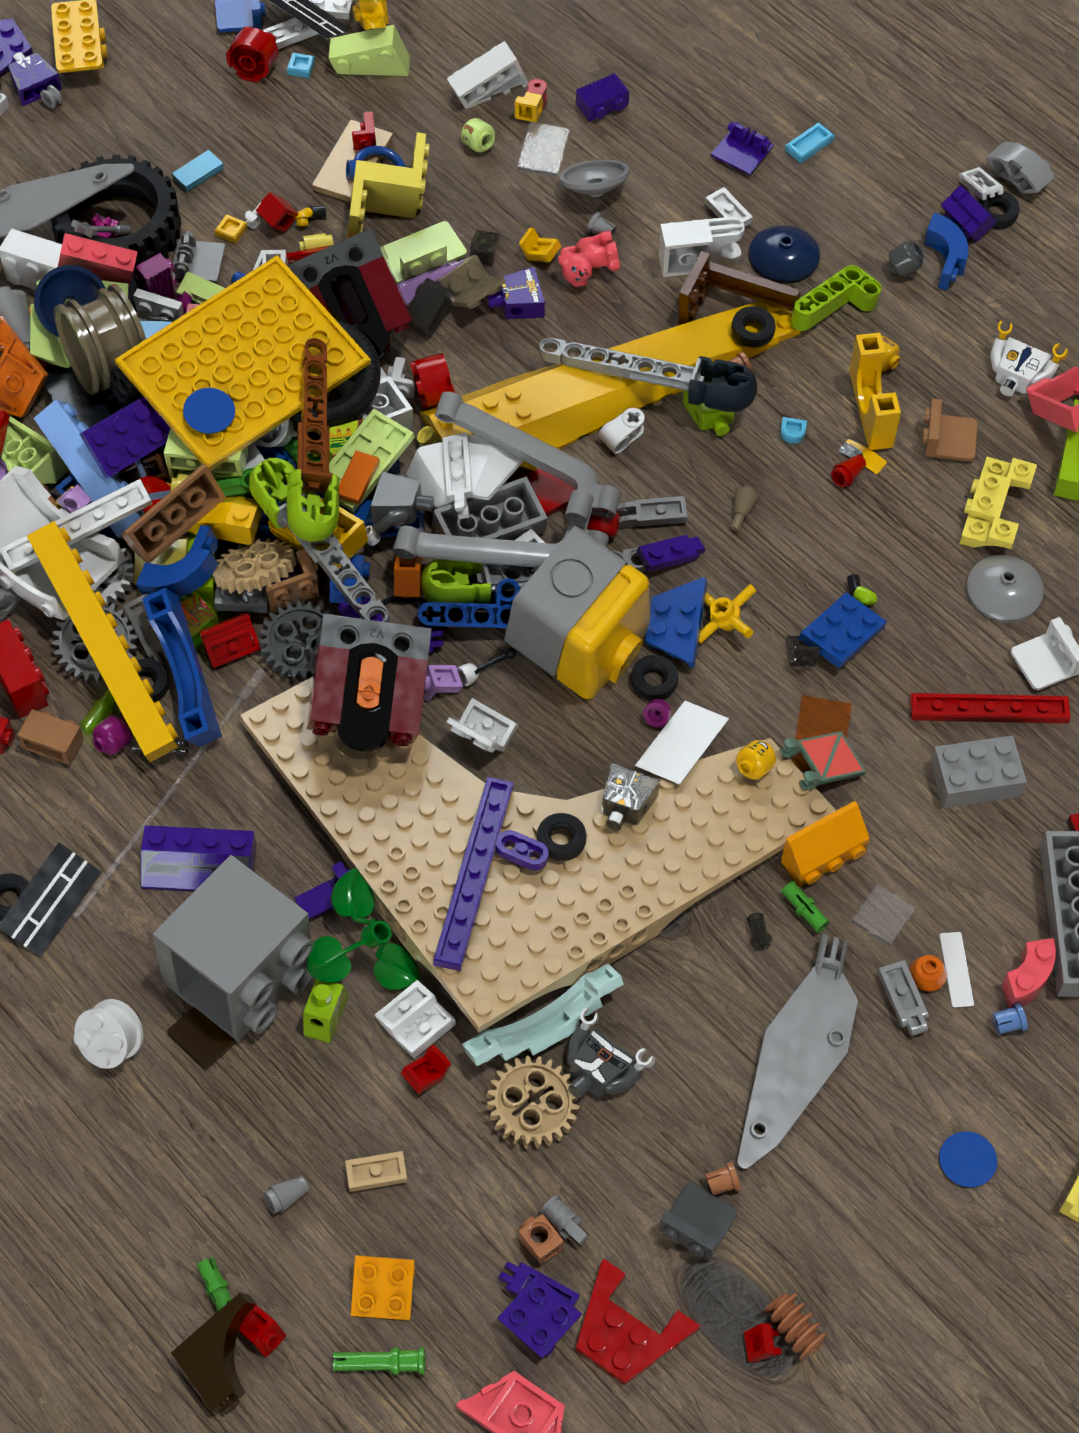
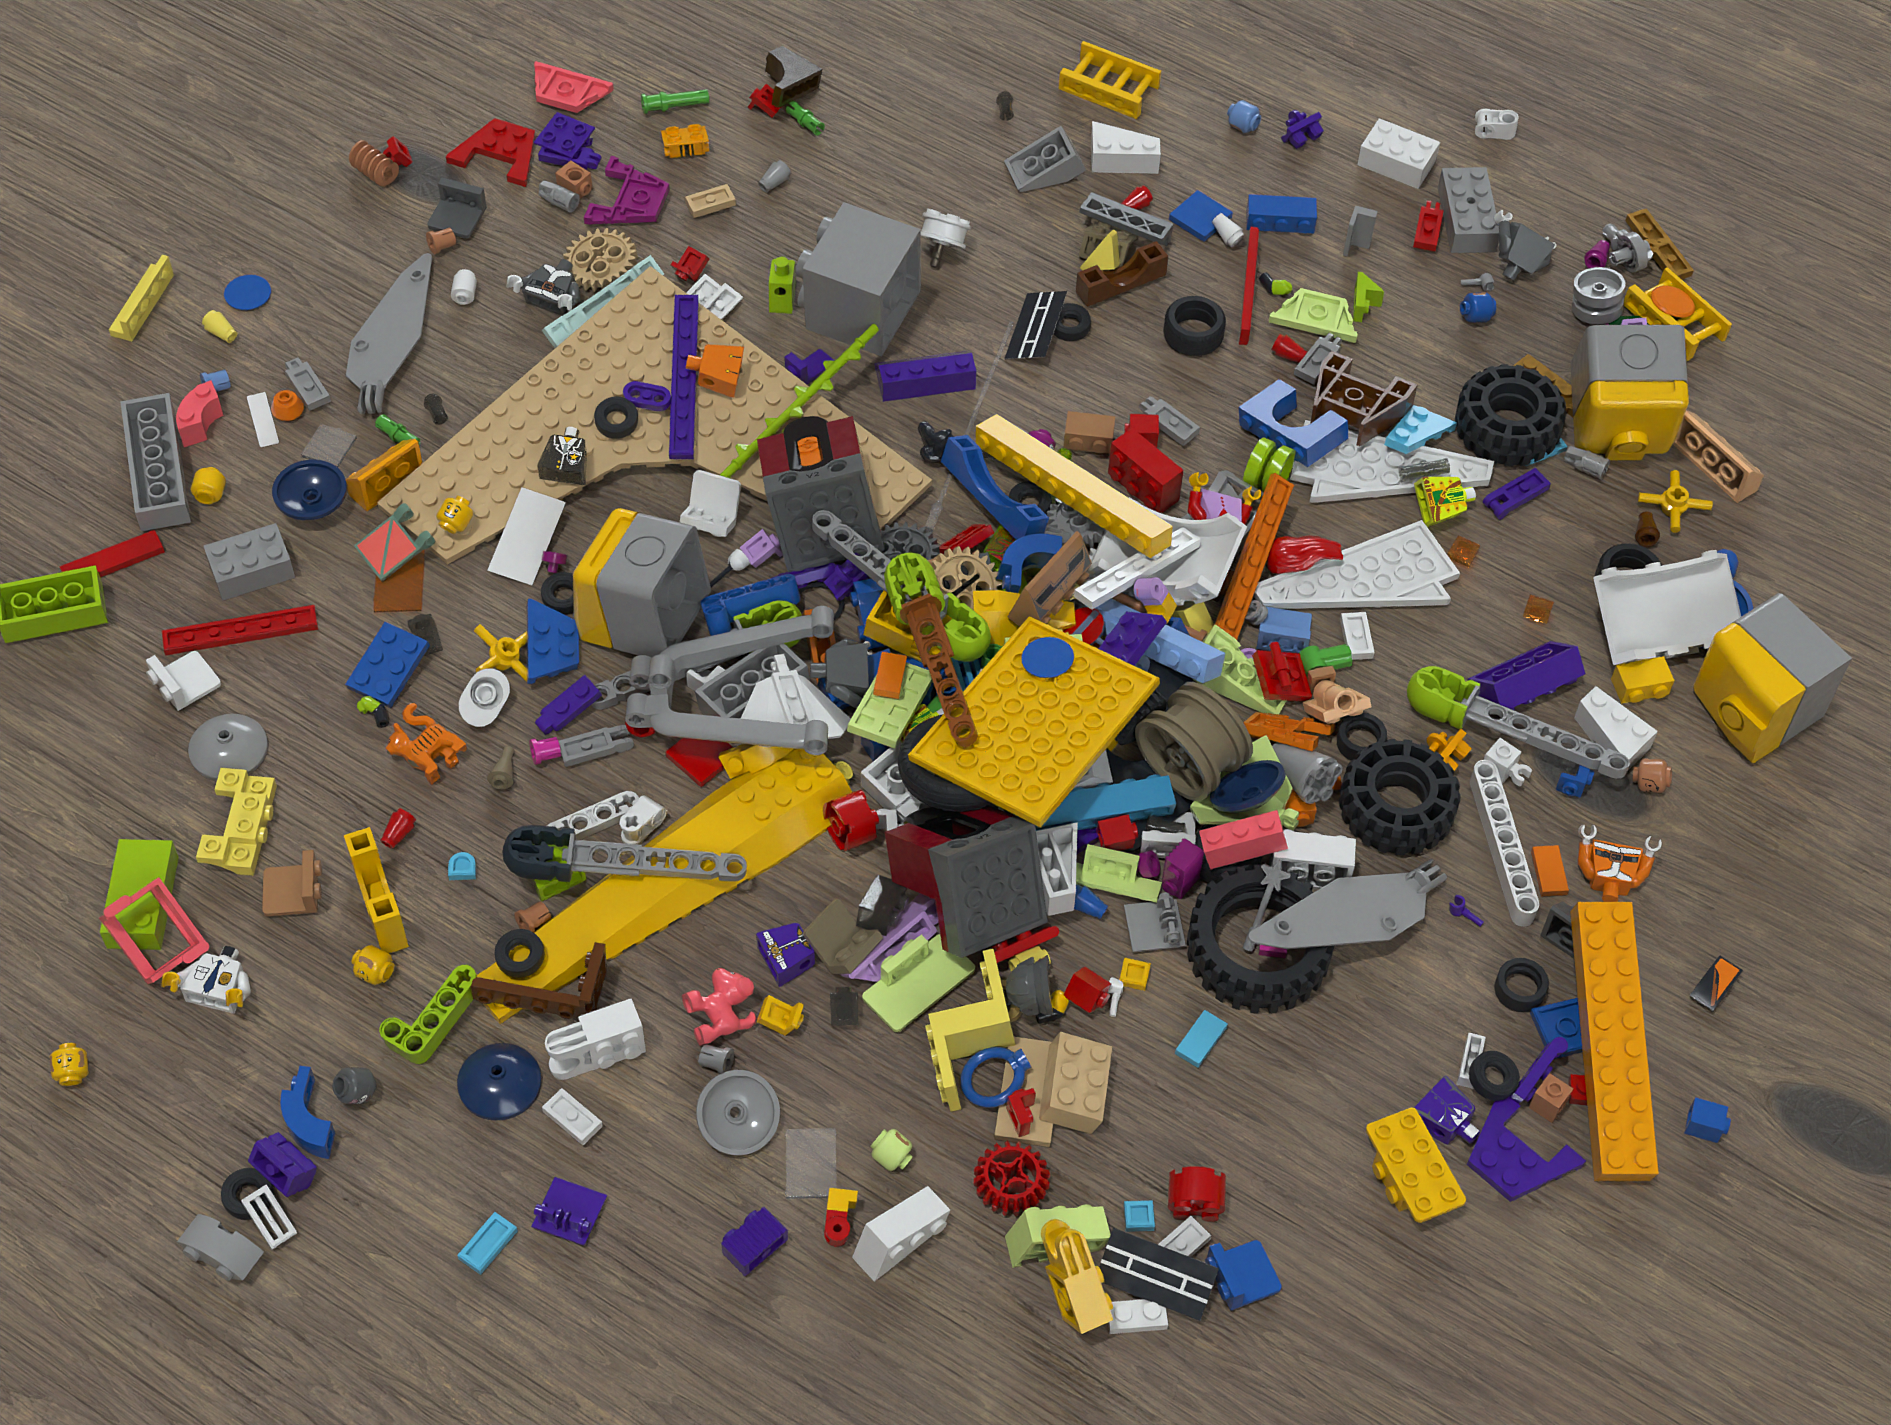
camera: 165 degrees right, 5 degrees down
(51, 96) = (1409, 1093): light grey bush -> none
(216, 760) = (933, 442): none -> black hair
(315, 144) = (1075, 1083): none -> tan brick
(327, 210) = (1028, 989): none -> dark grey helmet
(327, 959) = (783, 291): green plant -> none
(364, 804) = (803, 394): none -> lime plant
(391, 92) = (995, 1165): none -> red gear
(433, 860) = (718, 368): none -> orange torso
(464, 1195) = (637, 201): none -> magenta wing
(666, 443) = (590, 813): none -> white beam
(701, 515) = (544, 749): none -> dark pink bush
(704, 1096) = (463, 287): none -> white brick
(753, 569) = (484, 697): none -> white piece
(814, 536) = (427, 746): none -> orange animal
(873, 461) = (393, 859): yellow sticker -> none
(912, 824) = (309, 489): none -> dark blue dish
(1003, 1102) = (219, 326): none -> light yellow cone
(1020, 877) = (208, 485): none -> yellow head

